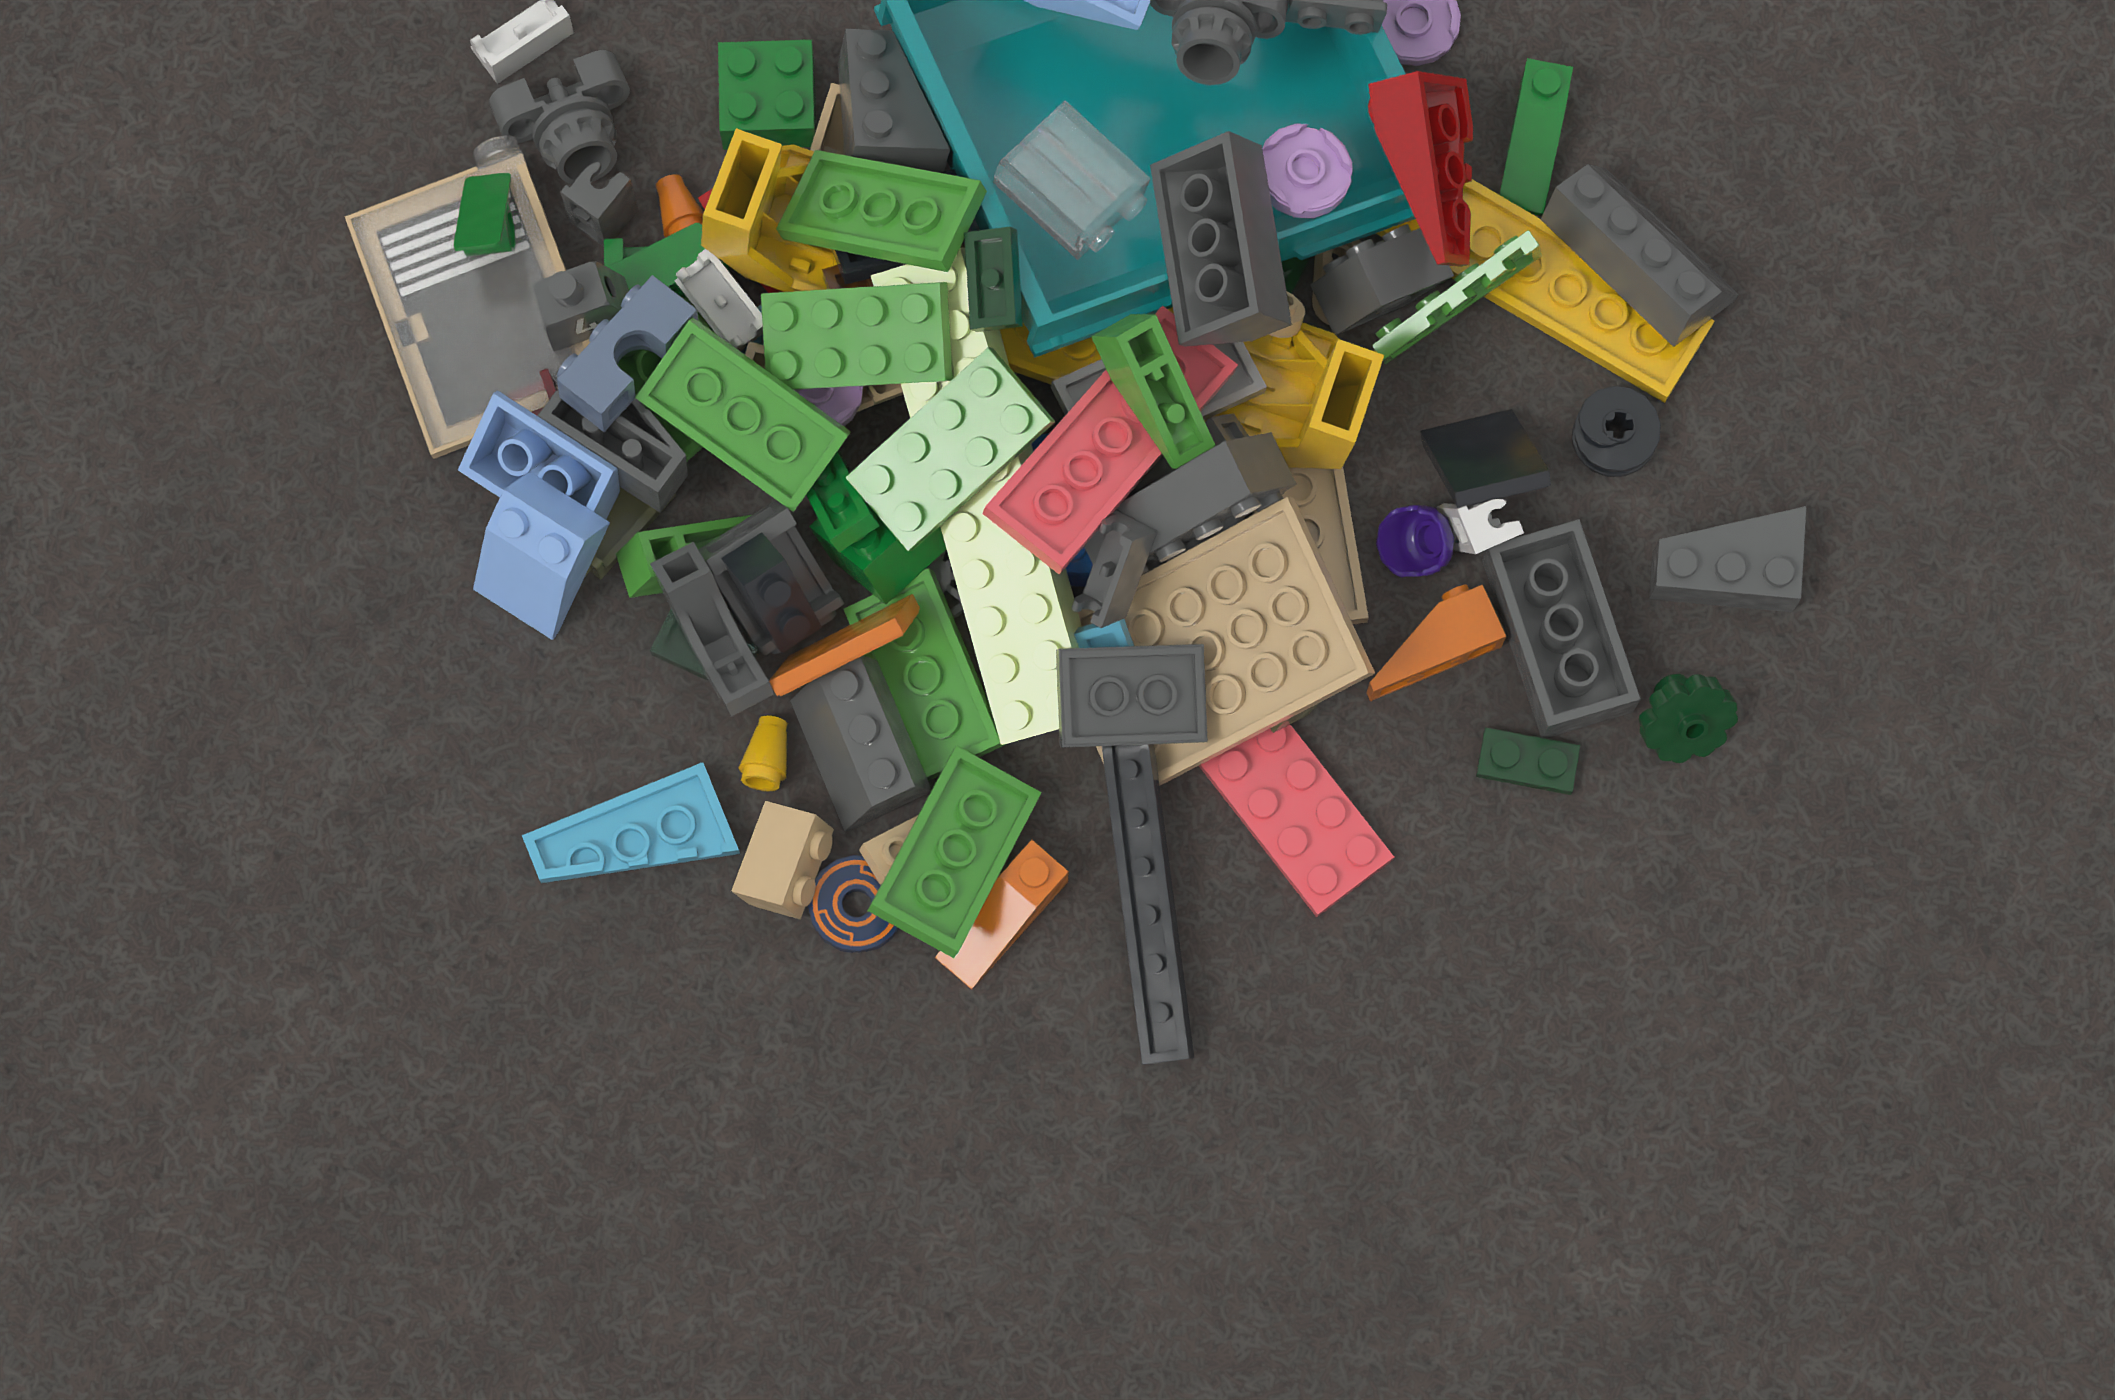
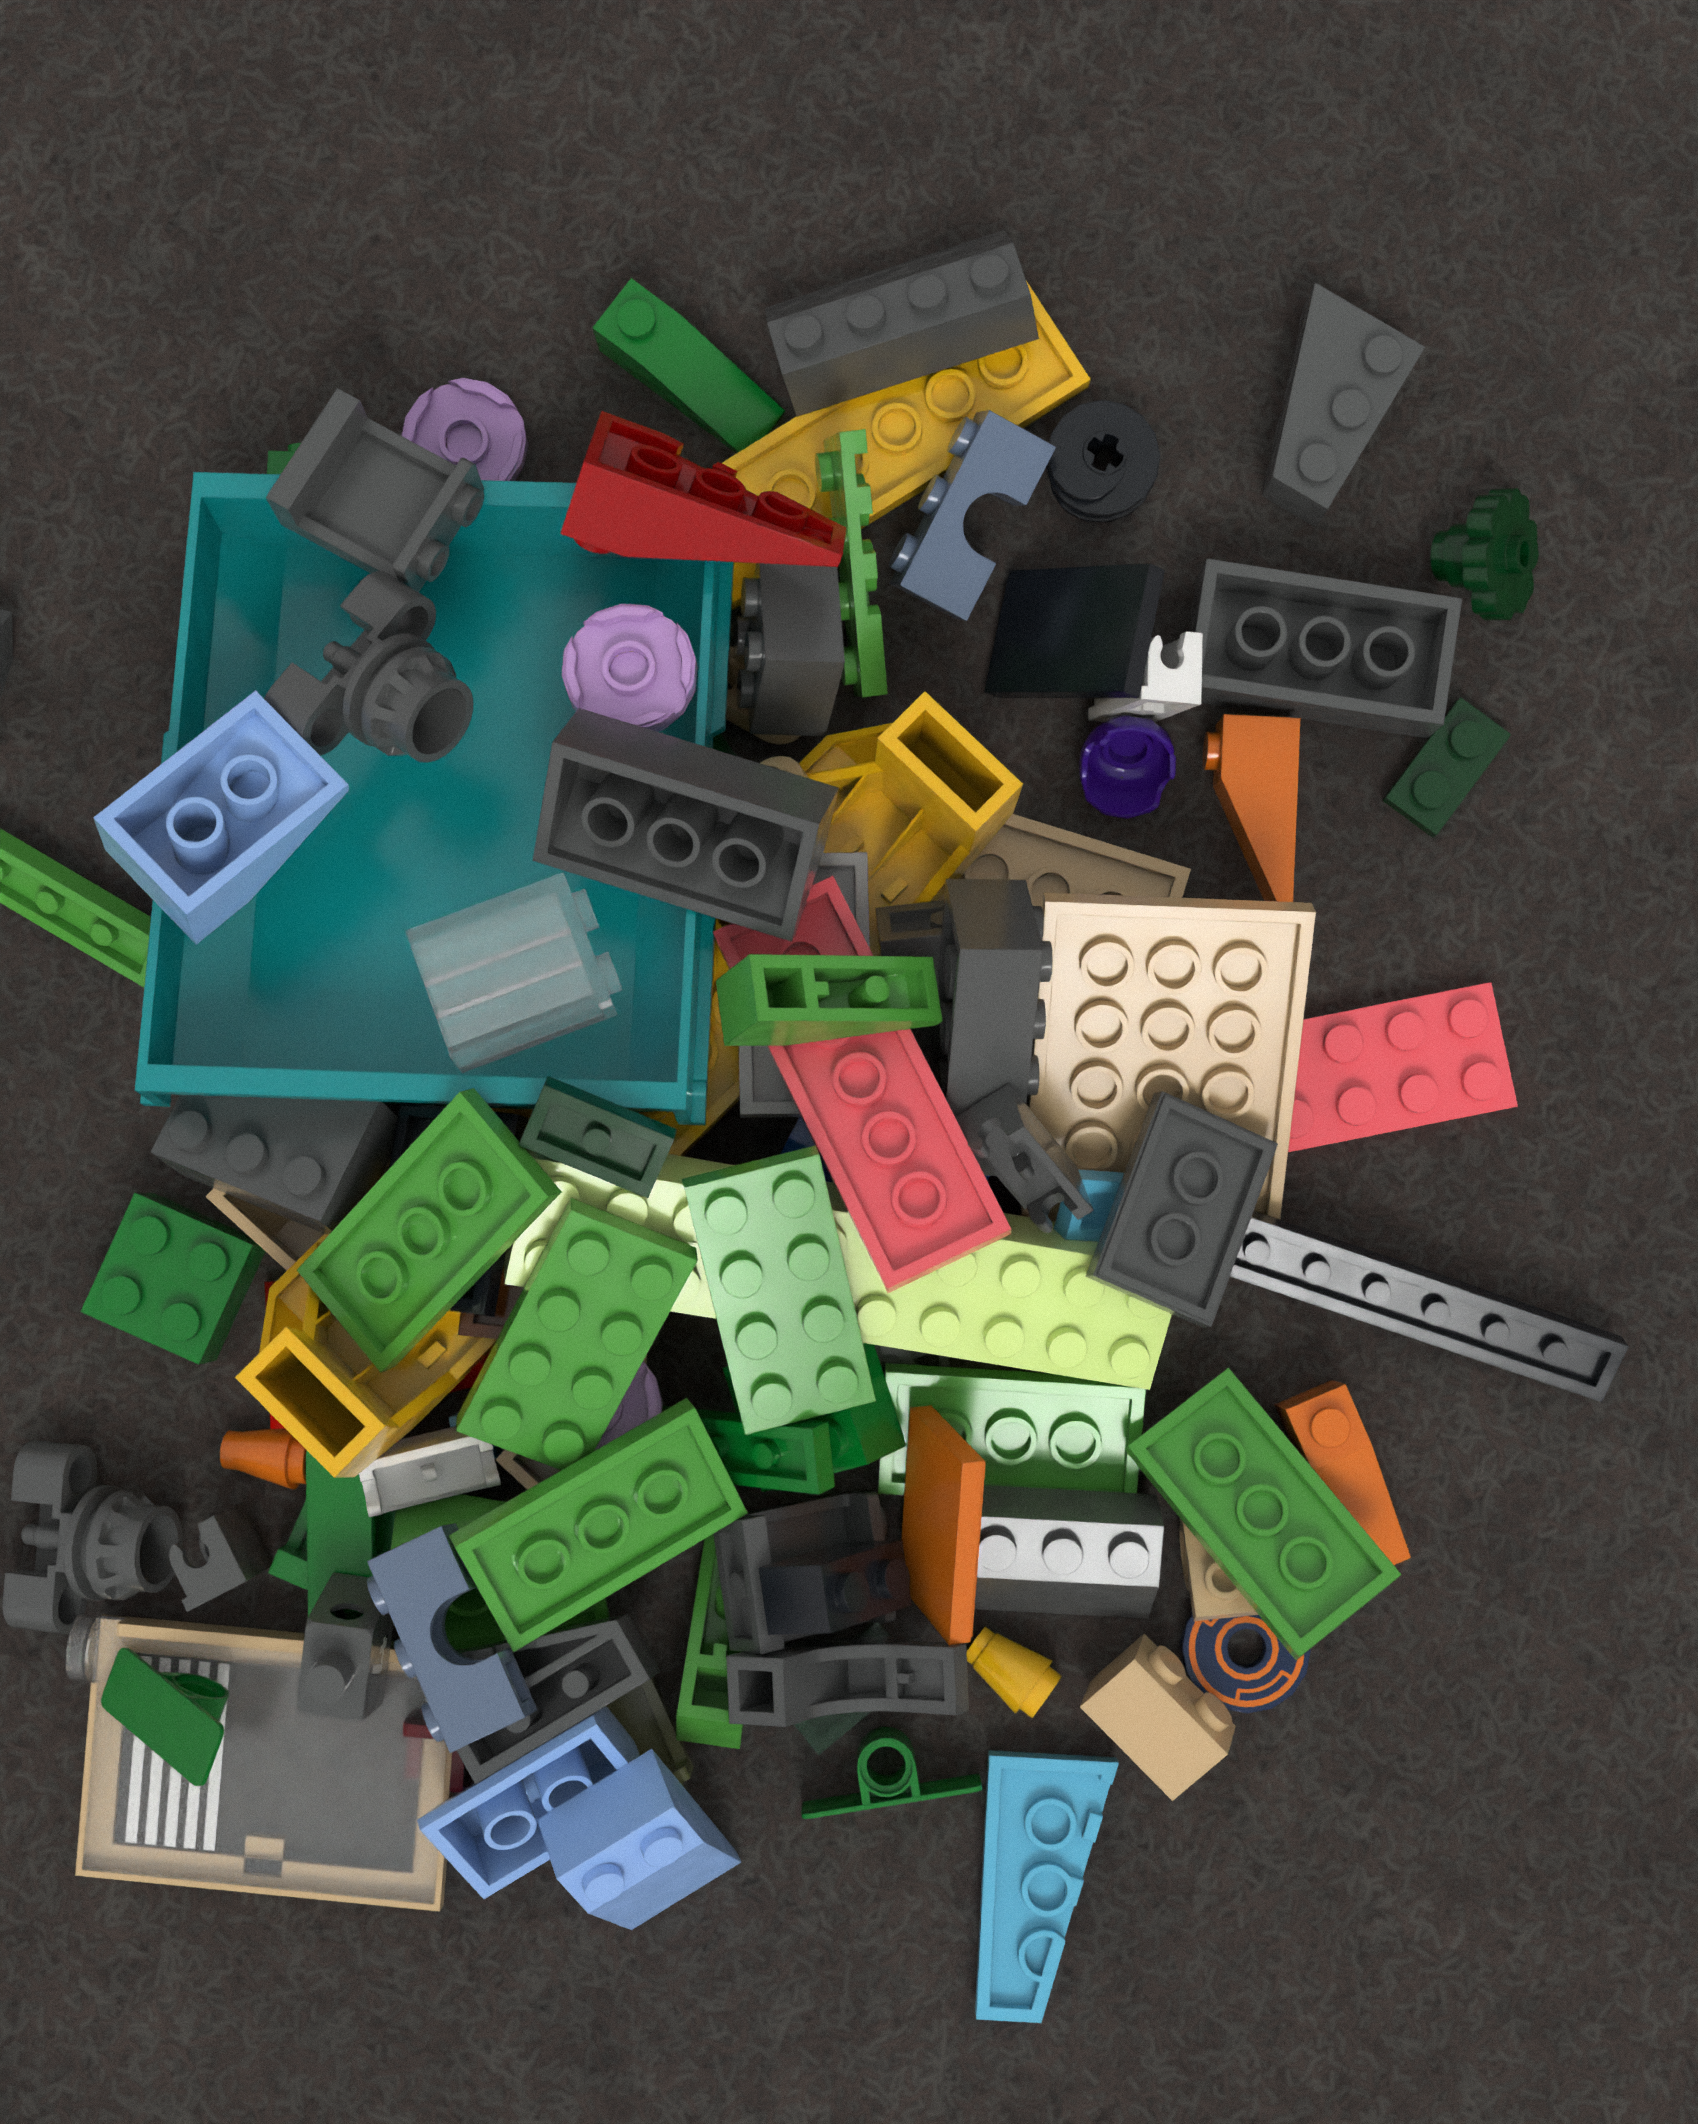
camera: 60 degrees left, 10 degrees up
(657, 716) = (891, 1789): none -> green piece
(1488, 354) = (987, 459): none -> sand blue arch

